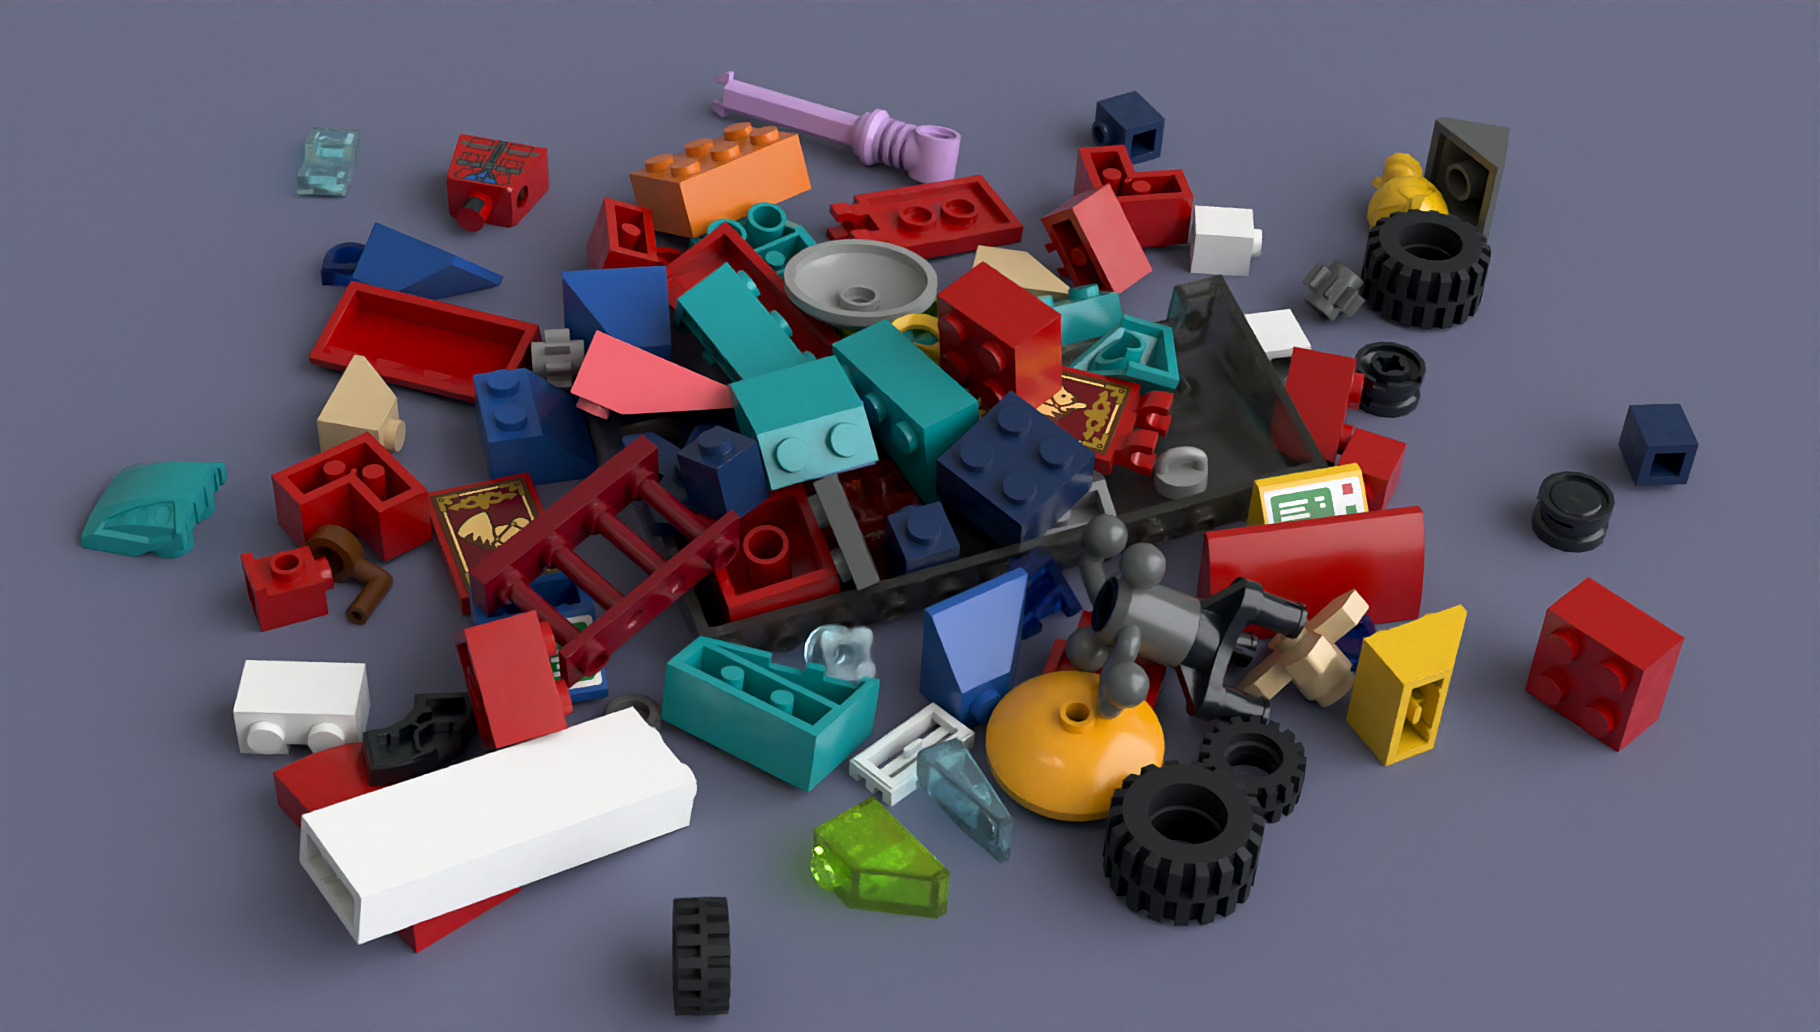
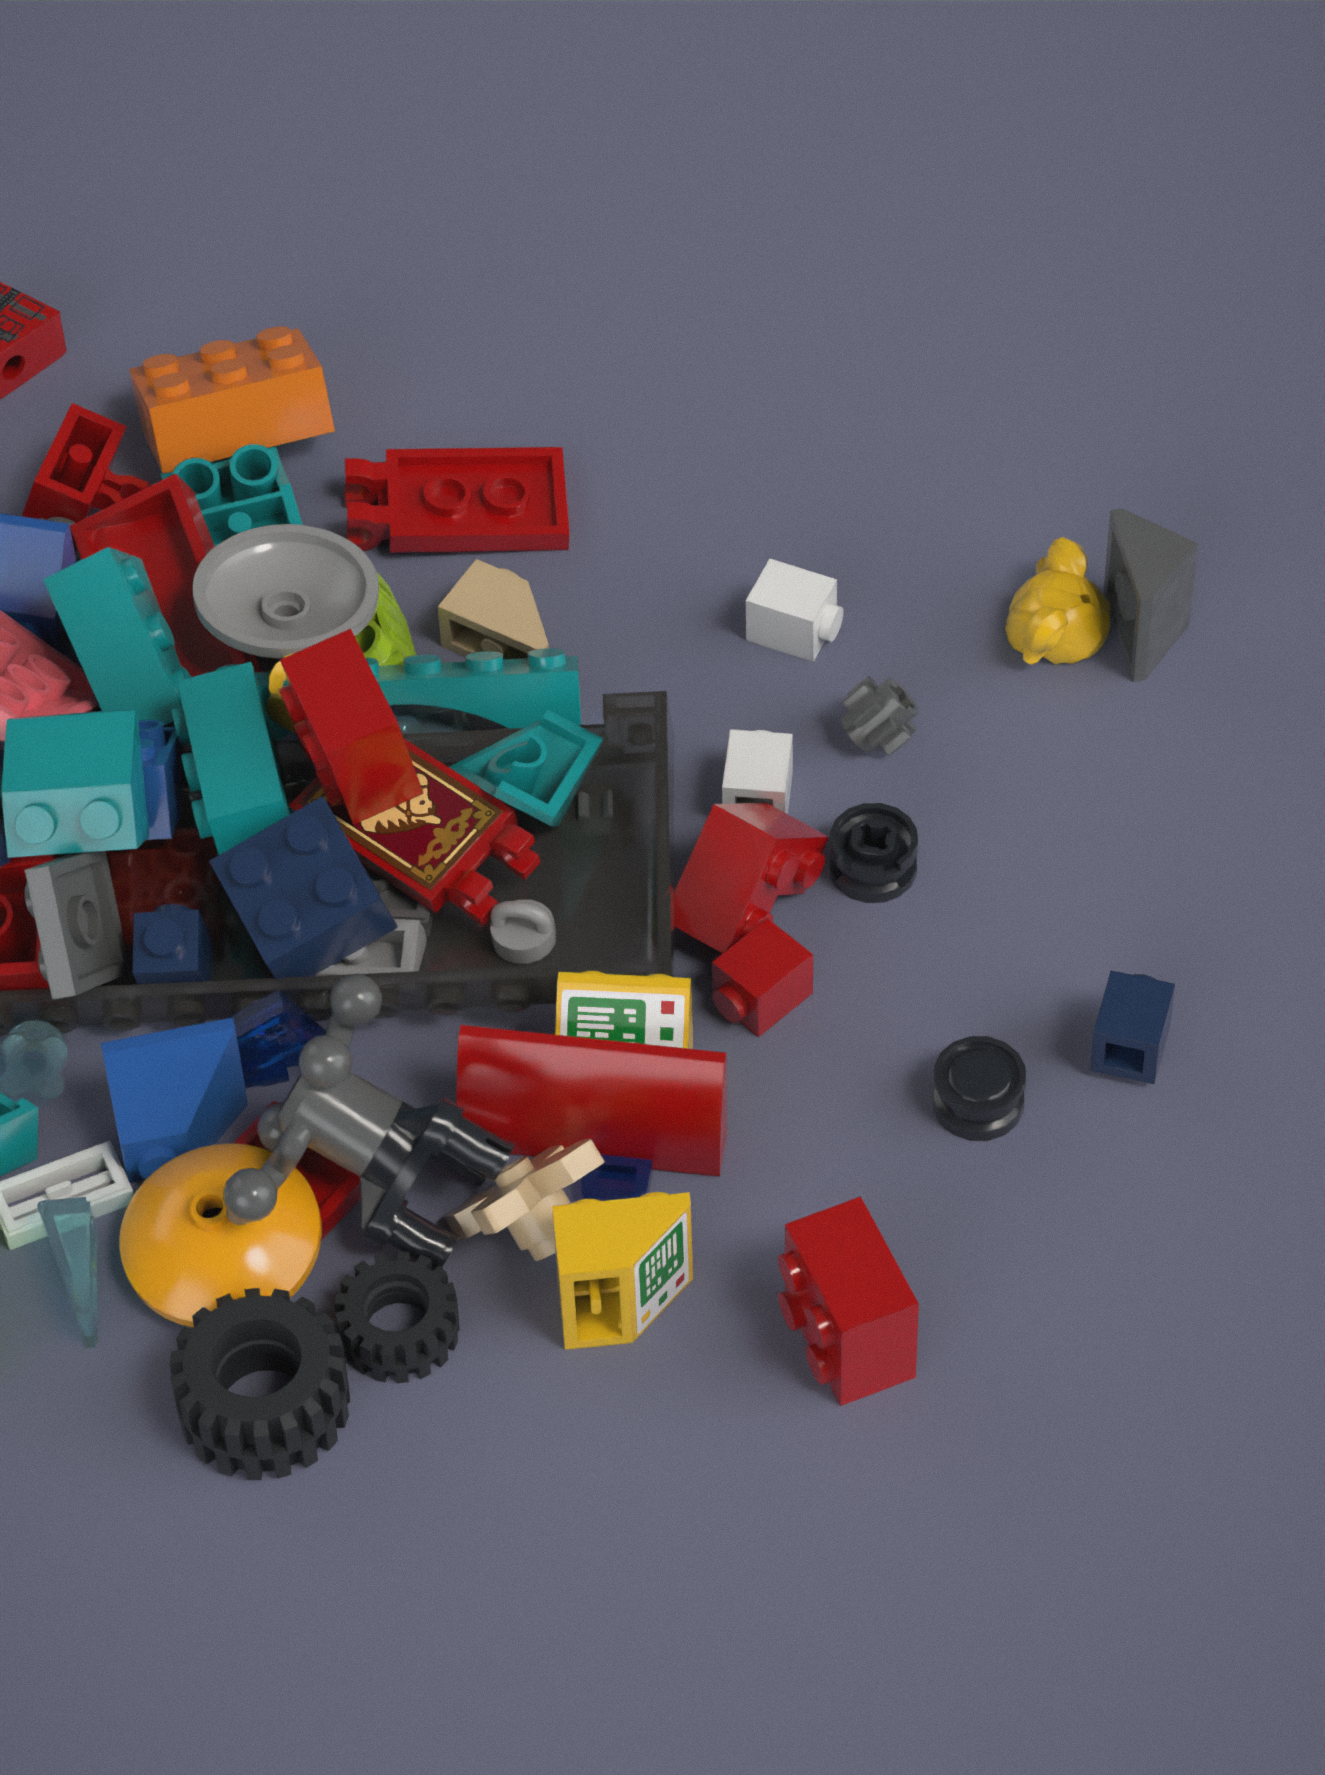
camera: 25 degrees right, 10 degrees up
(924, 151) = (457, 366): lavender piece -> none
(1096, 241) = (615, 589): brick -> none
(1131, 123) = (775, 418): dark blue brick -> none
(1153, 201) = (694, 537): red brick -> none
(1425, 269) = (1002, 746): black tyre -> none

